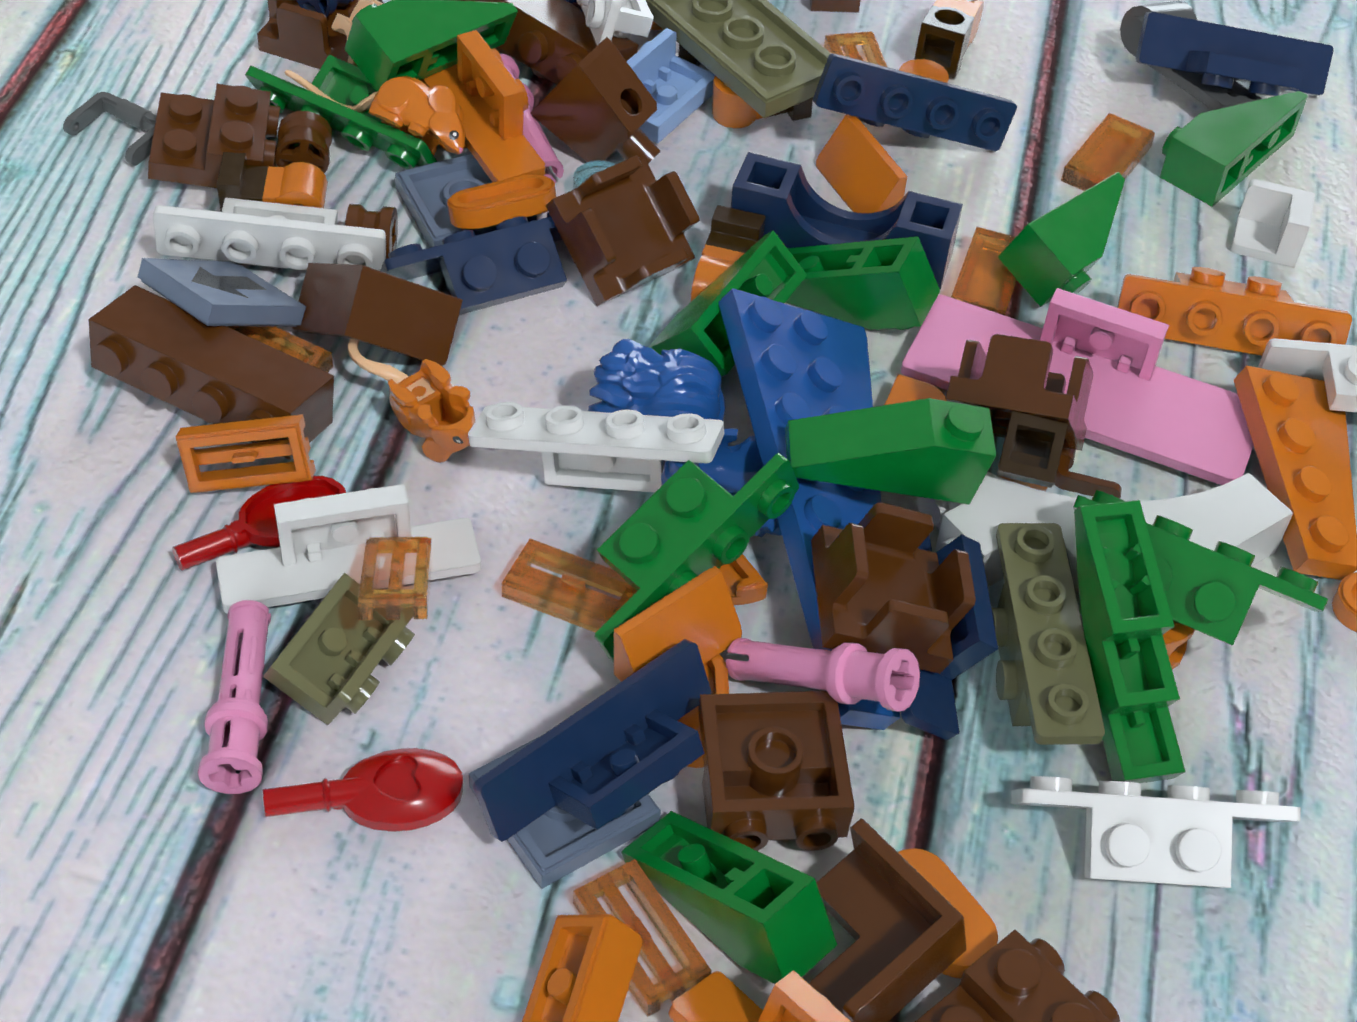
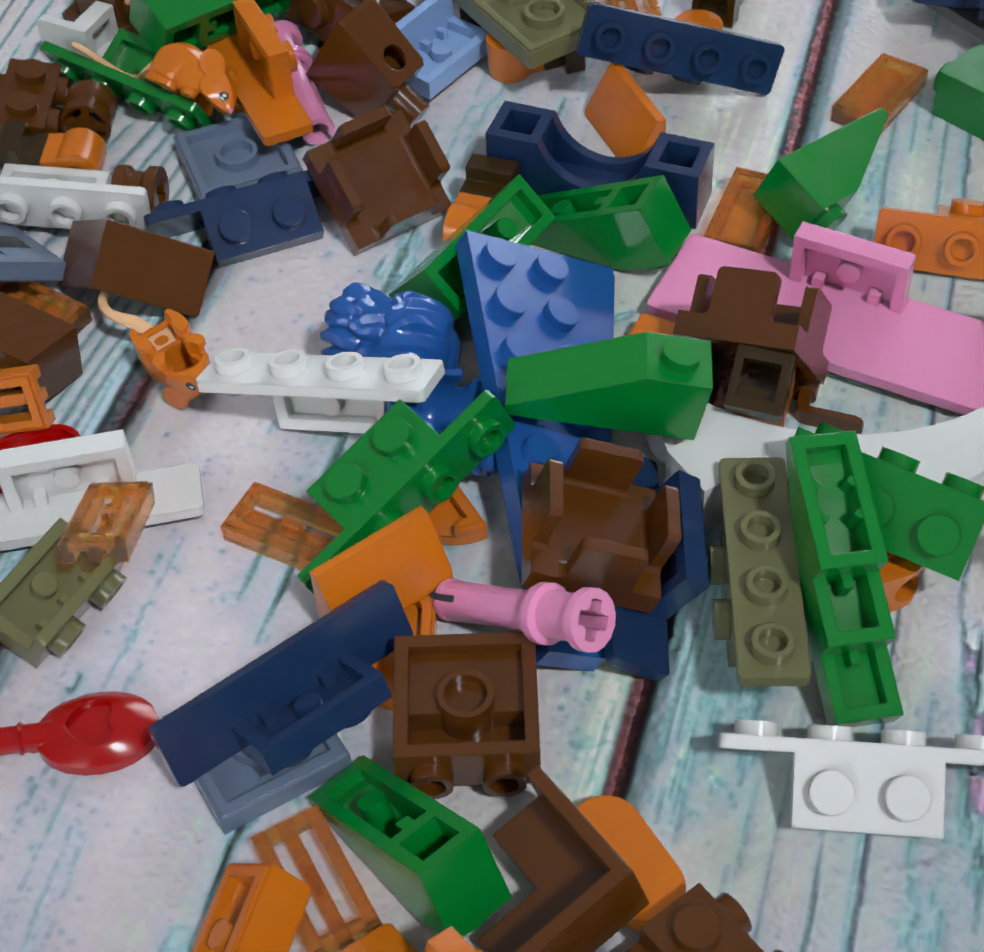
camera: 10 degrees right, 0 degrees up
(298, 54) = (92, 29): none -> white panel
(500, 201) = (262, 157): orange tile -> none

